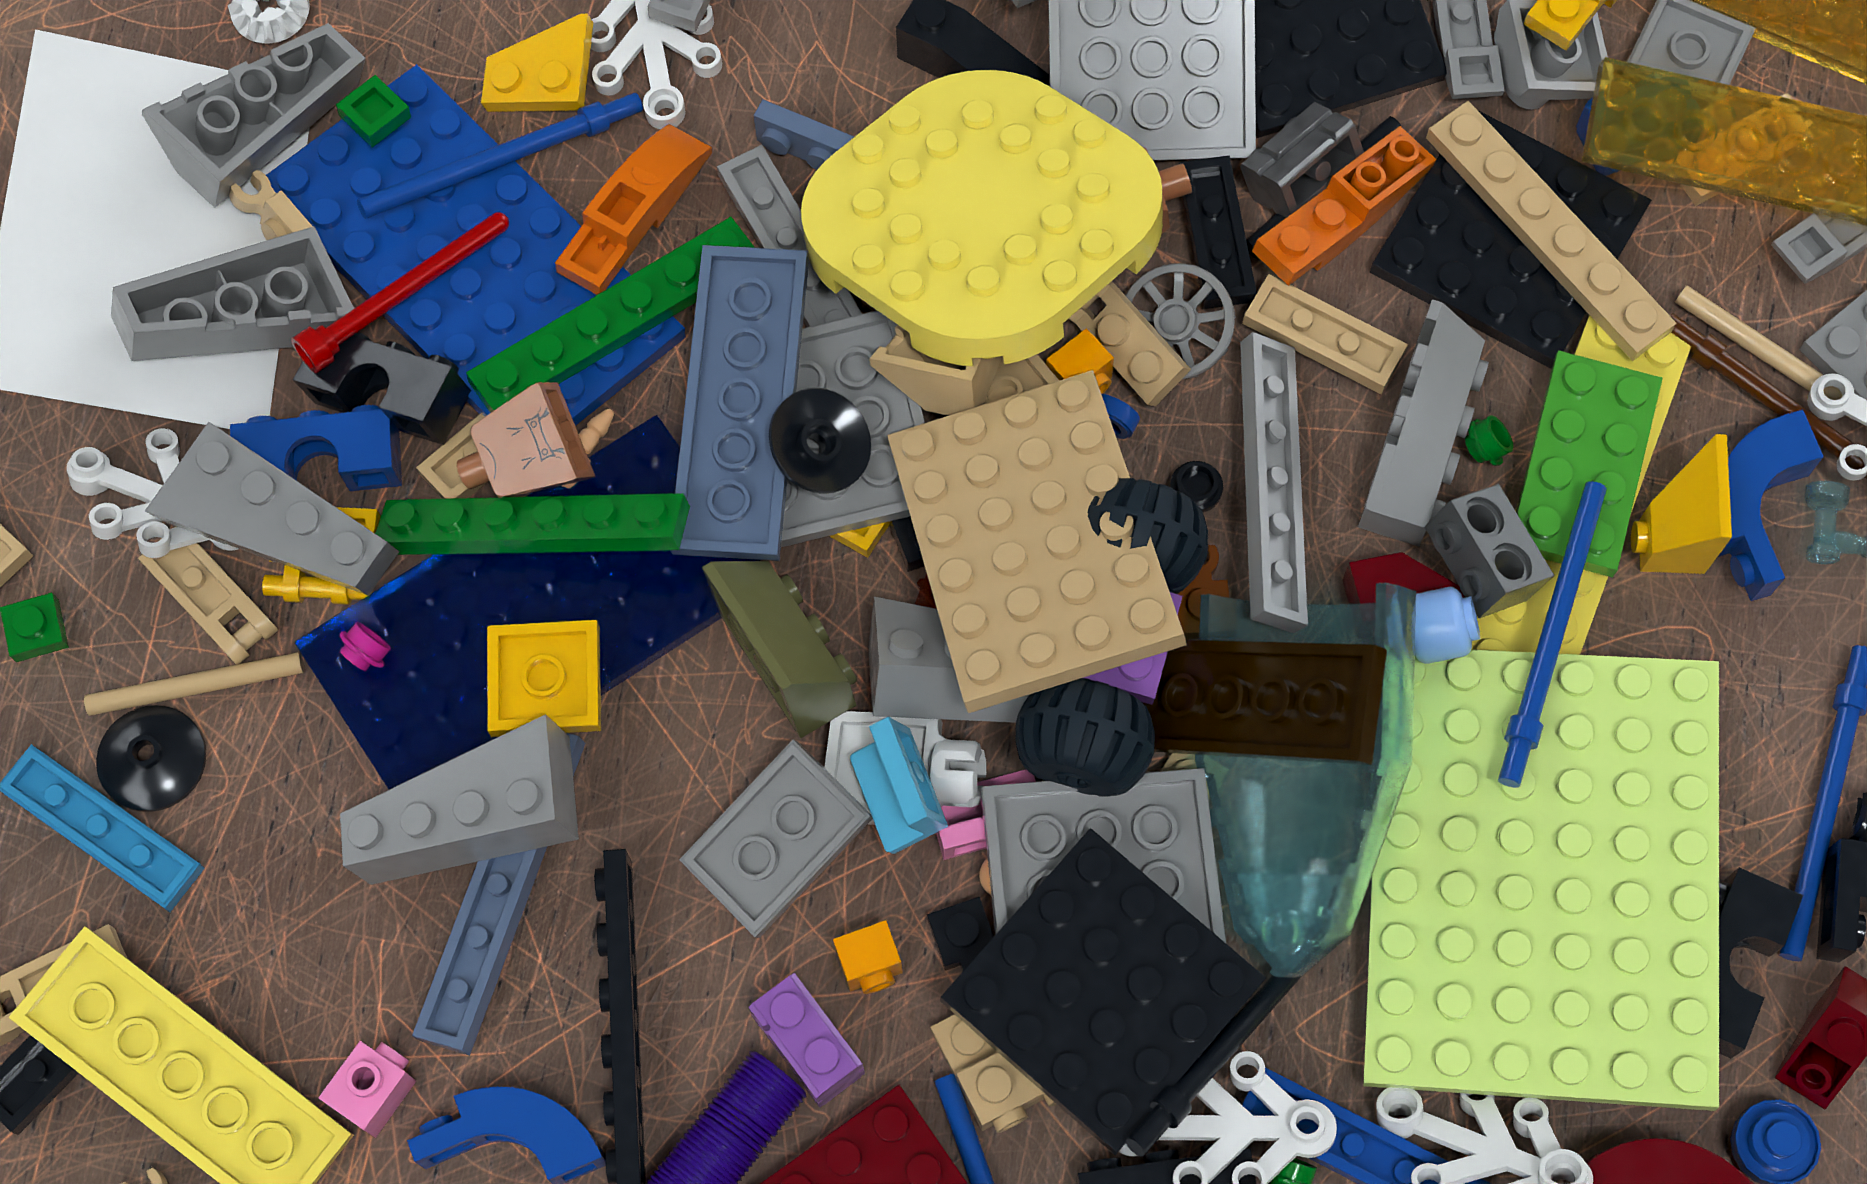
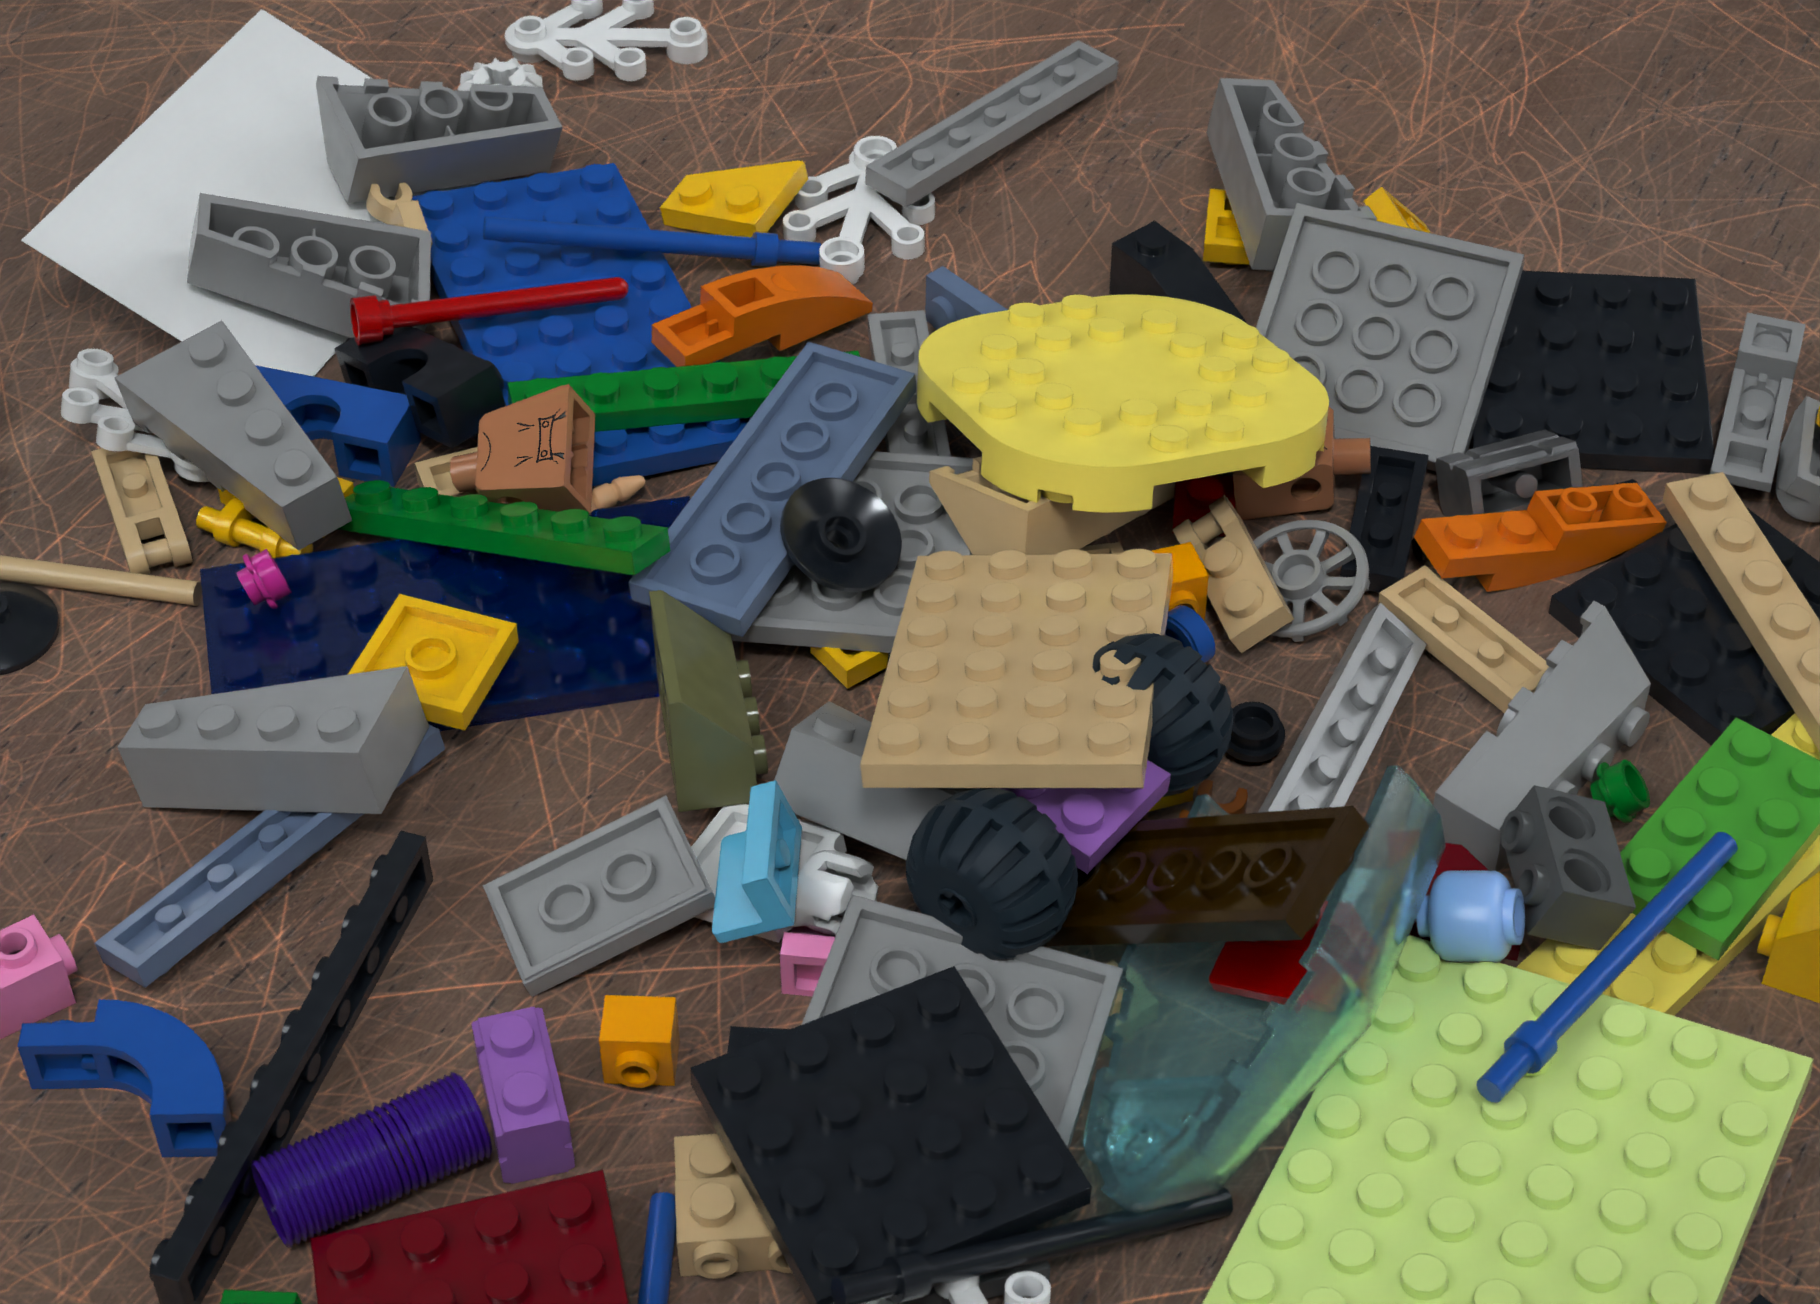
camera: 20 degrees right, 25 degrees down
(373, 110) = (545, 168): green plate -> none

